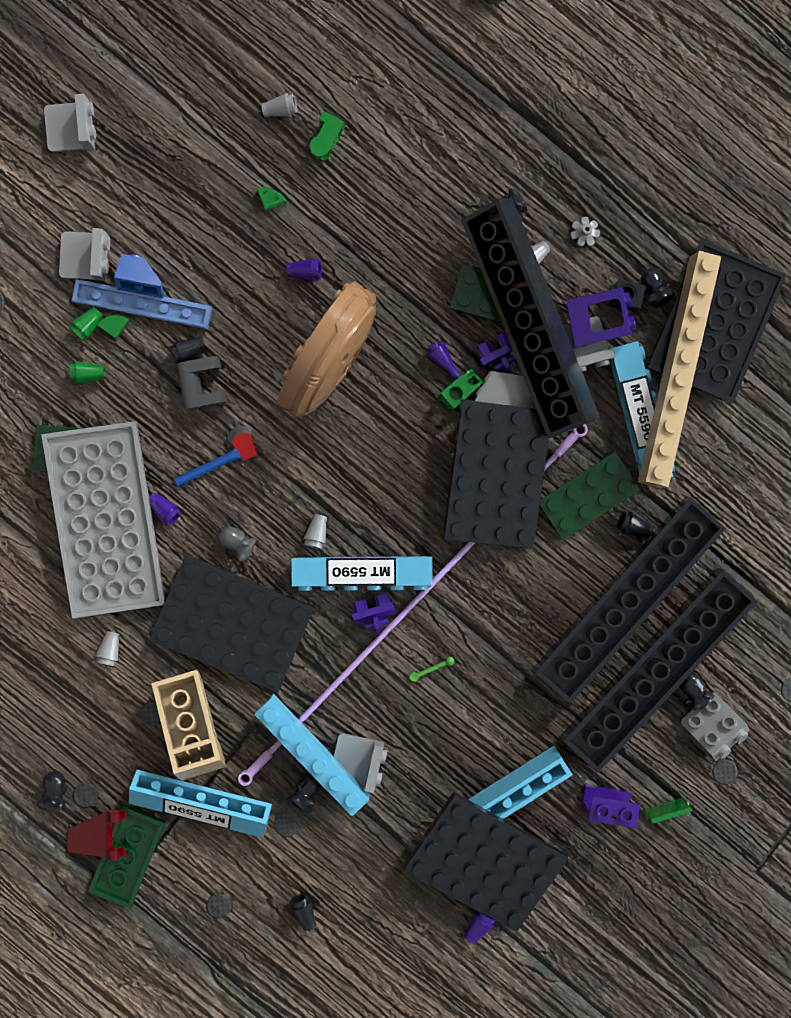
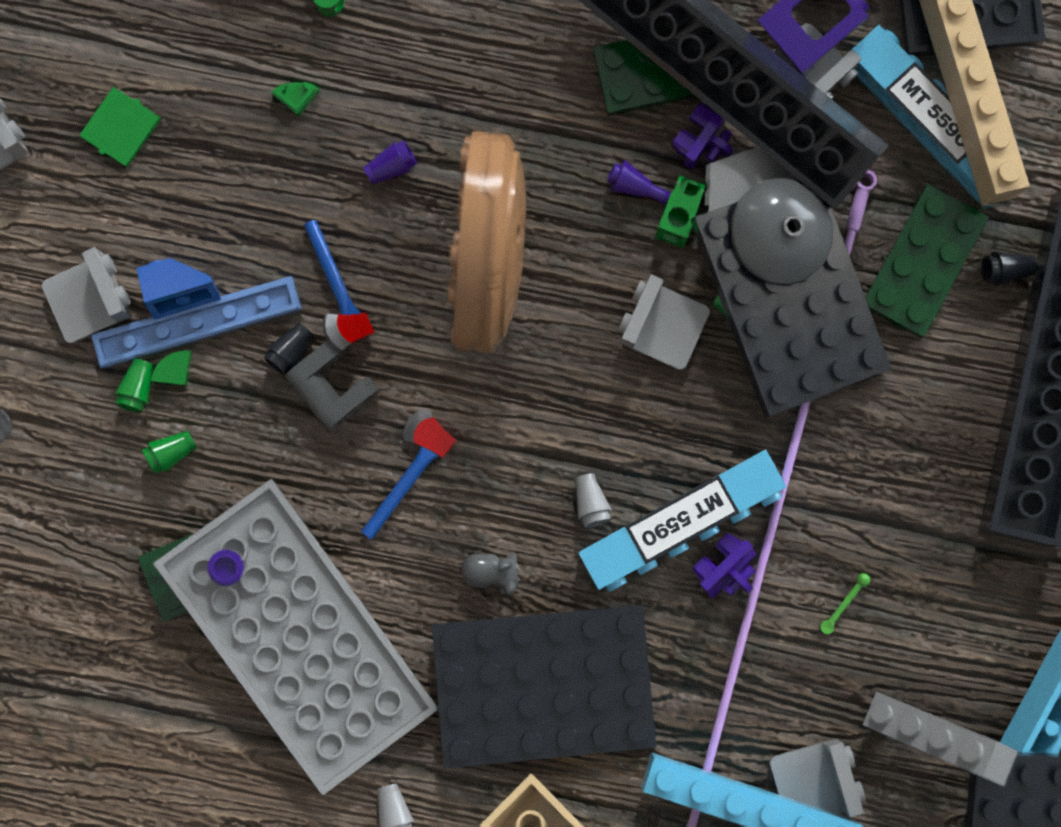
camera: 25 degrees left, 5 degrees down
(81, 459) = (225, 567): none -> dark purple plate
(156, 161) = (120, 127): none -> green piece
(164, 509) = (370, 579): dark purple cone -> none
(231, 354) = (350, 324): none -> piece
(414, 451) = (663, 324): none -> light grey bracket
(439, 775) = (940, 738): none -> light grey brick
(496, 431) = (764, 239): none -> dark grey dish

